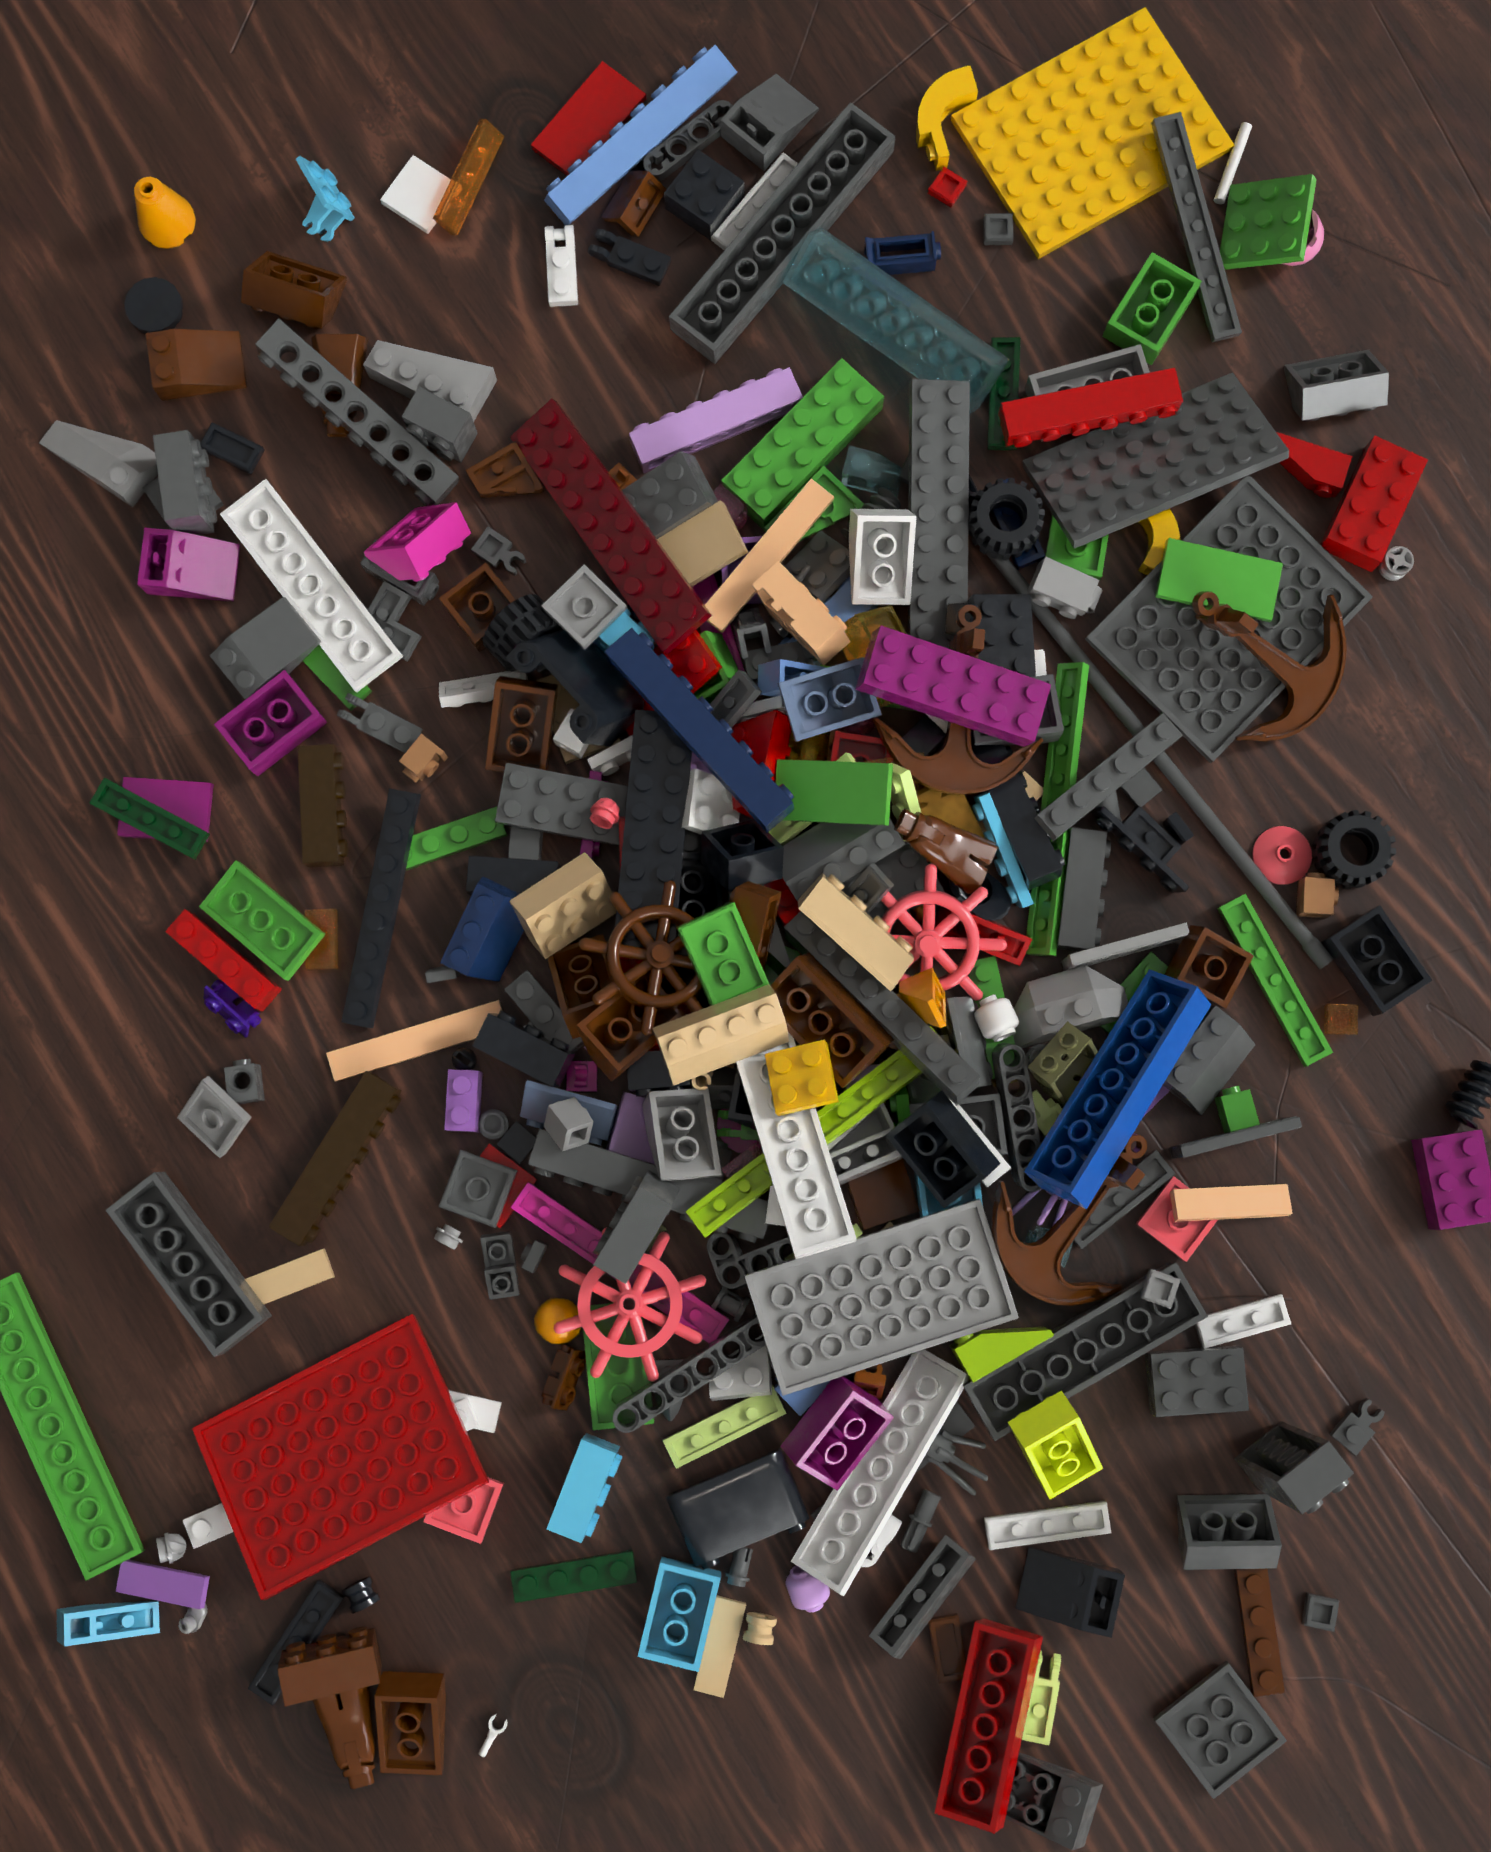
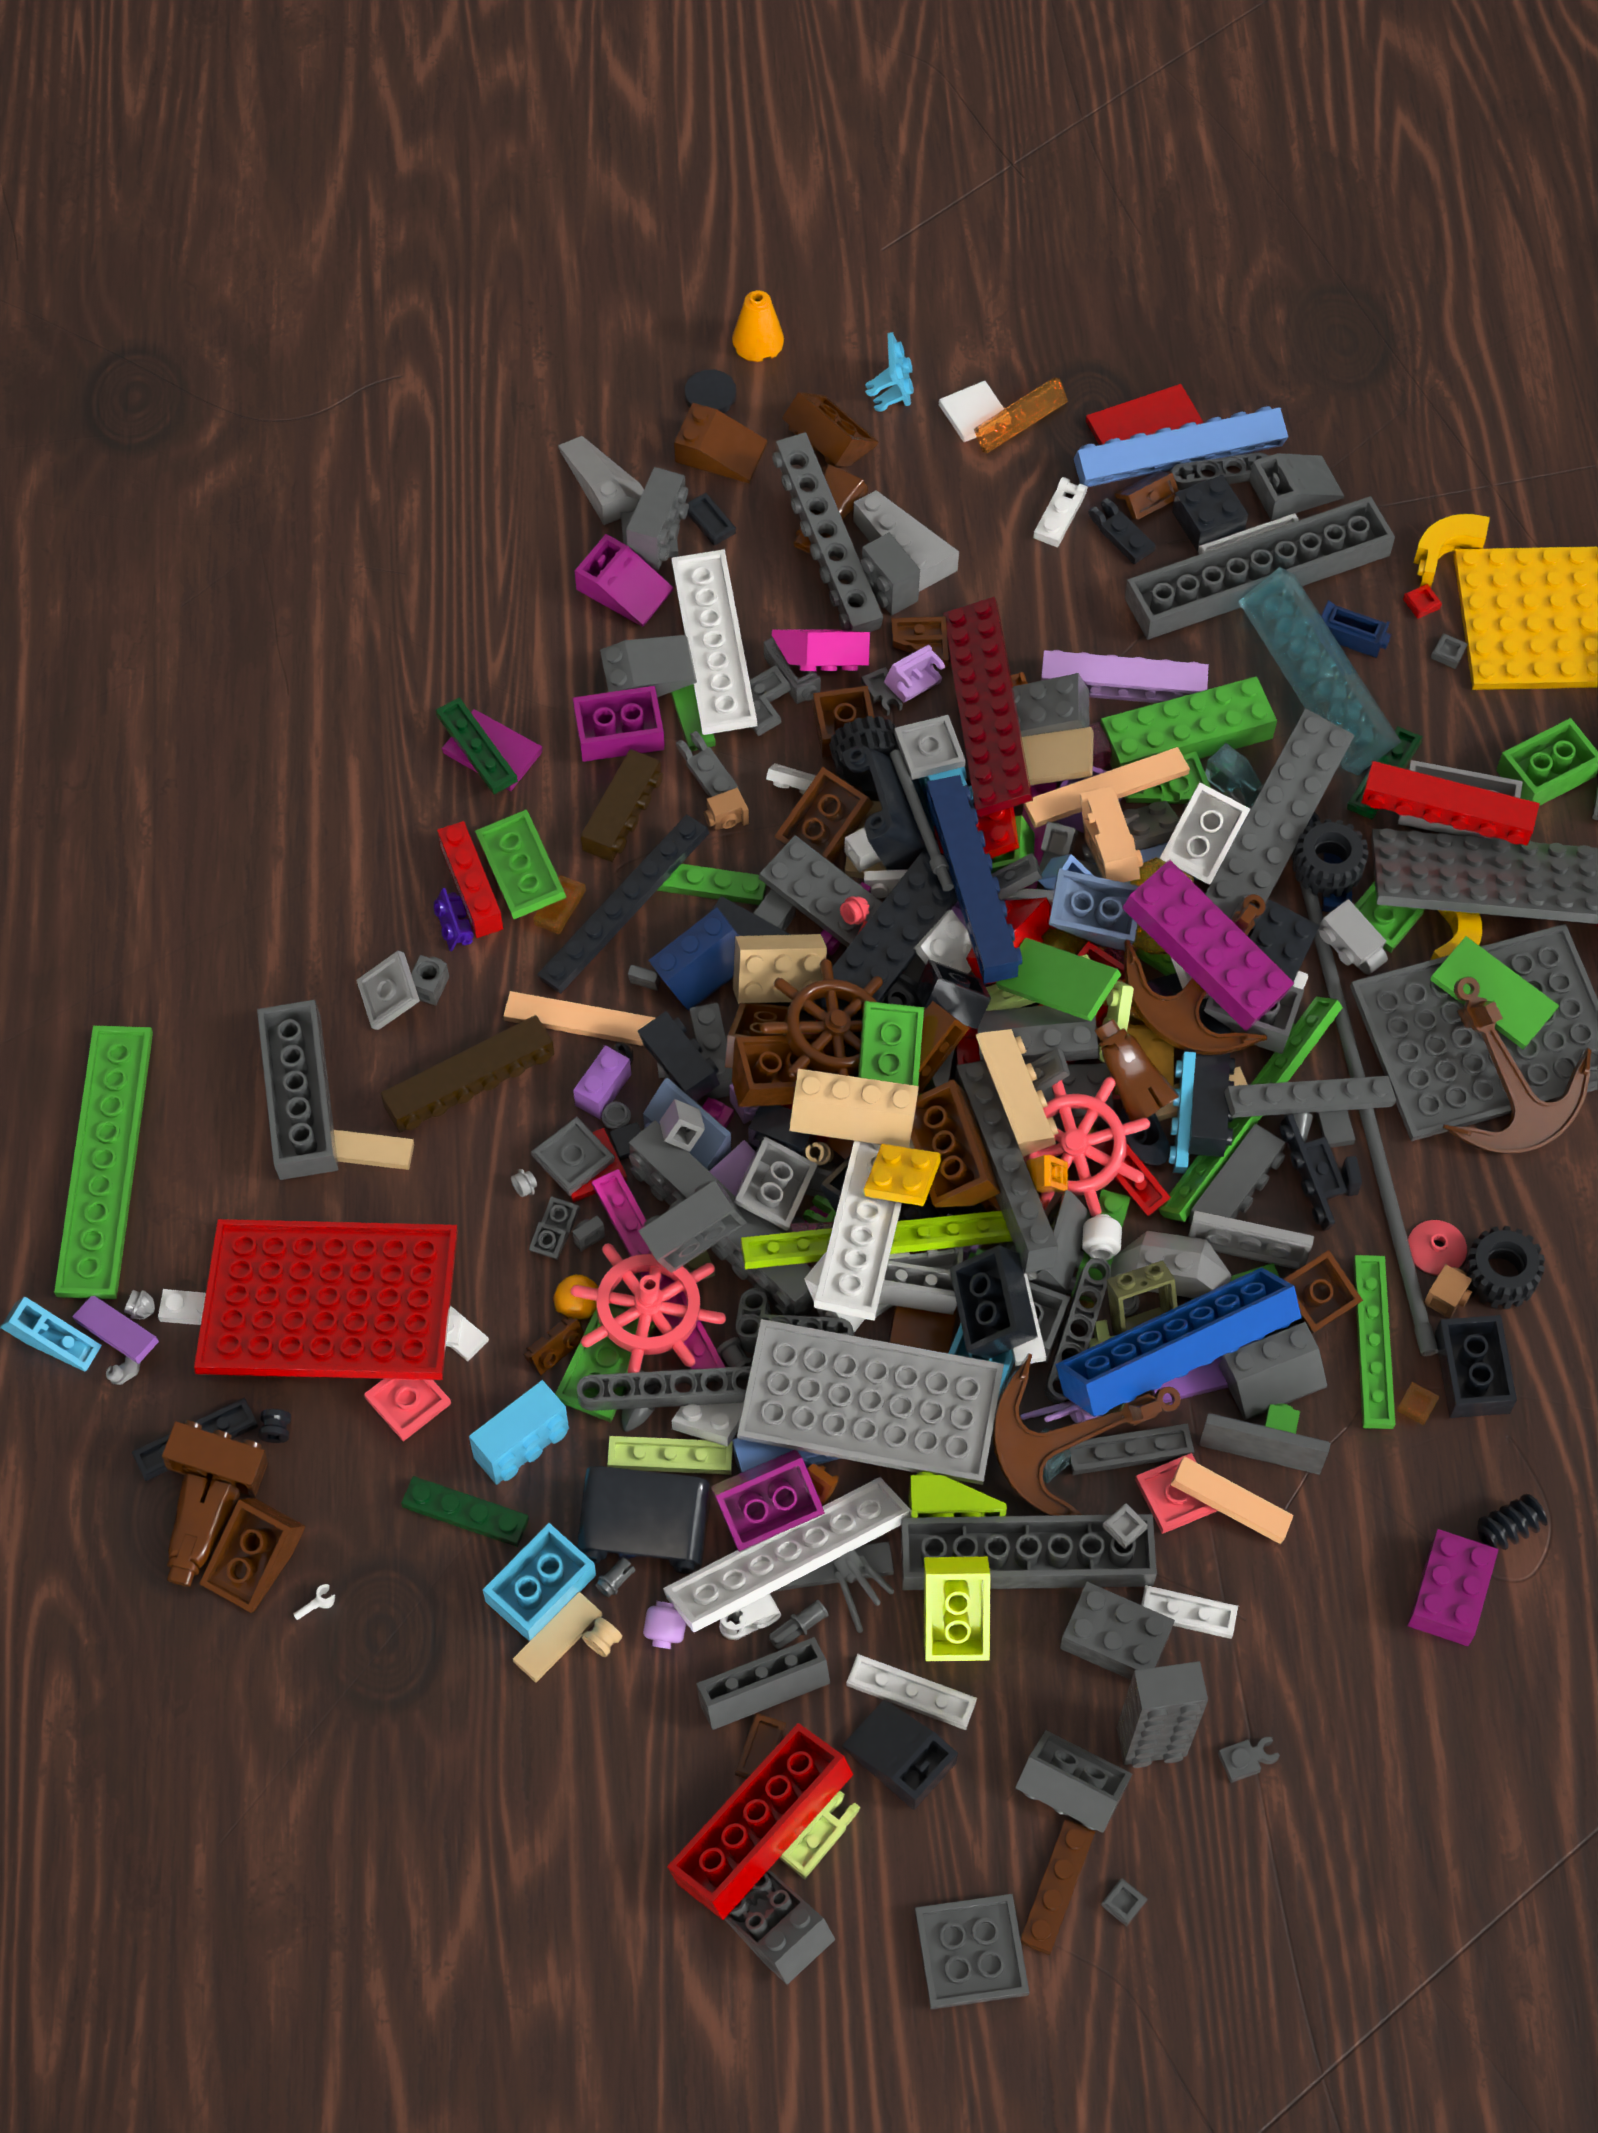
camera: 25 degrees right, 20 degrees down
(520, 521) = (914, 674): none -> lavender hinge
(659, 728) = (938, 862): none -> dark grey bar

